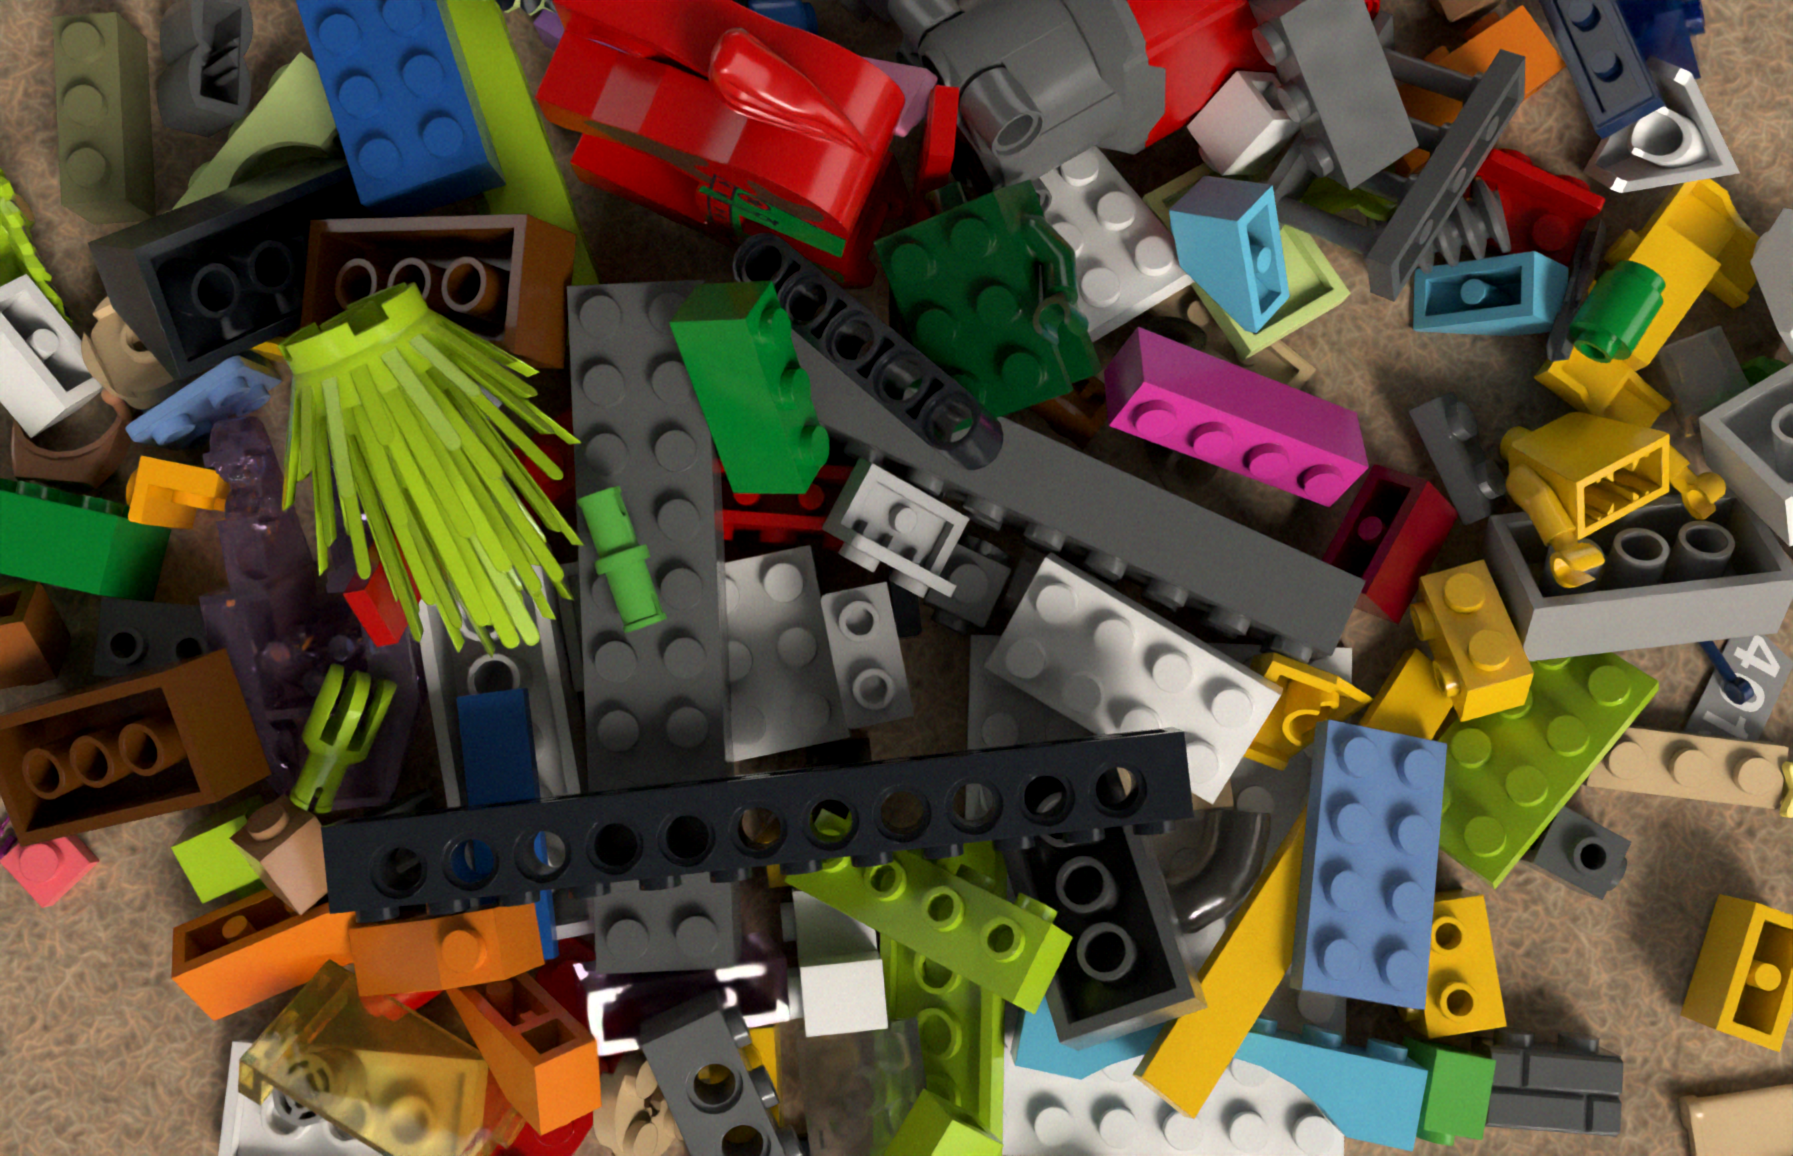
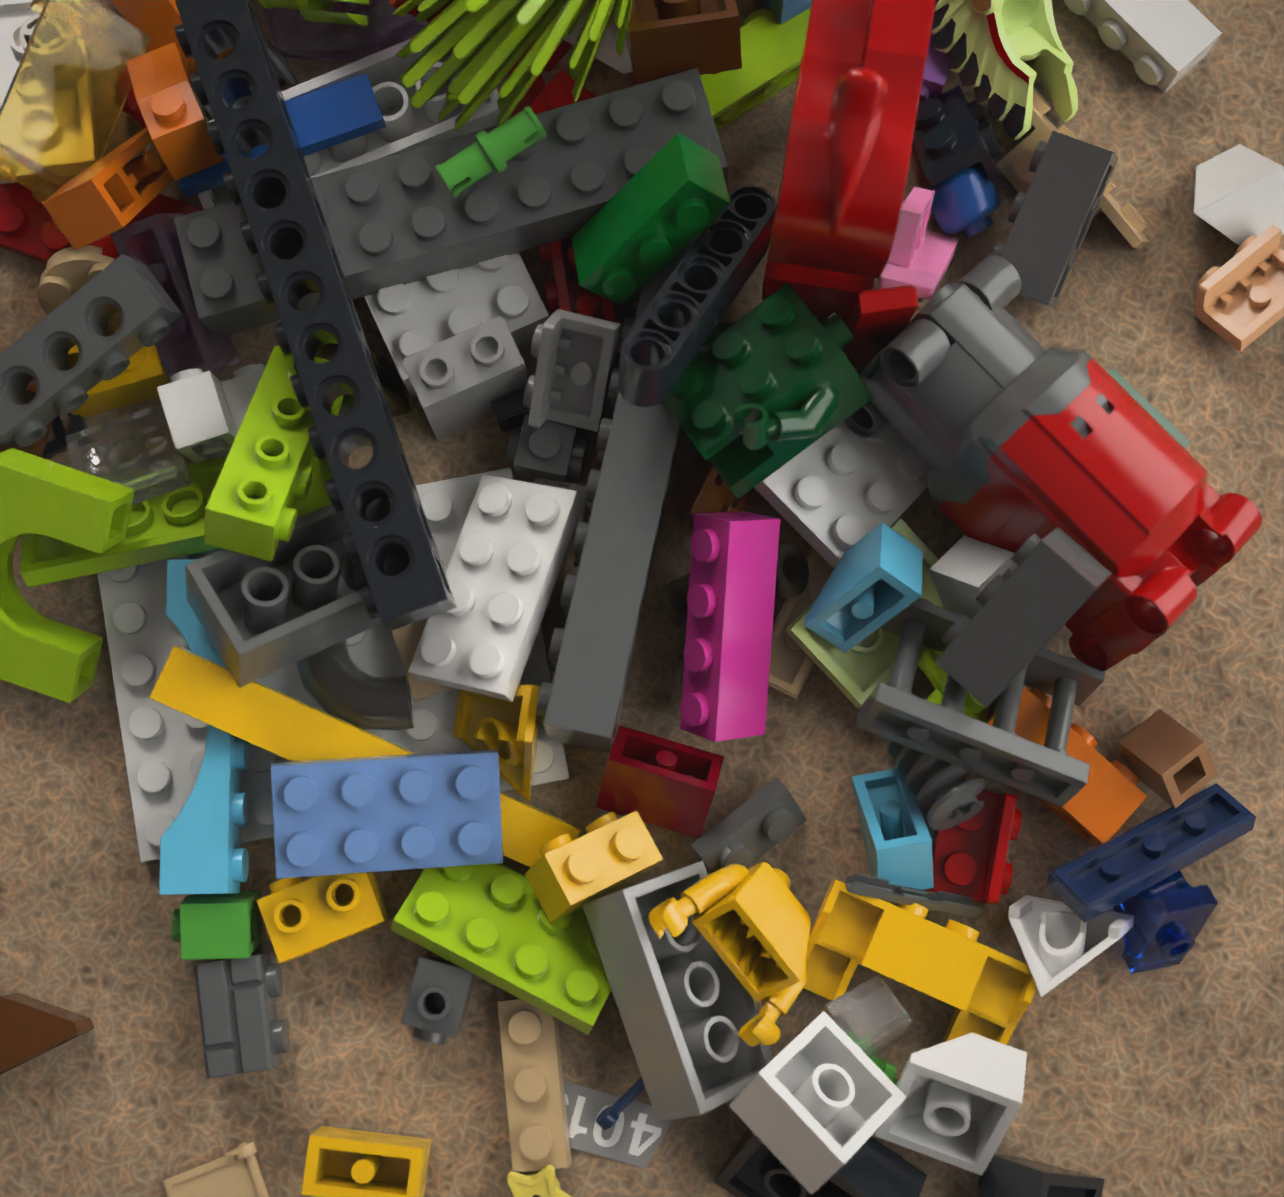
camera: 80 degrees right, 5 degrees down
(1617, 312) = (895, 919): green brick -> none

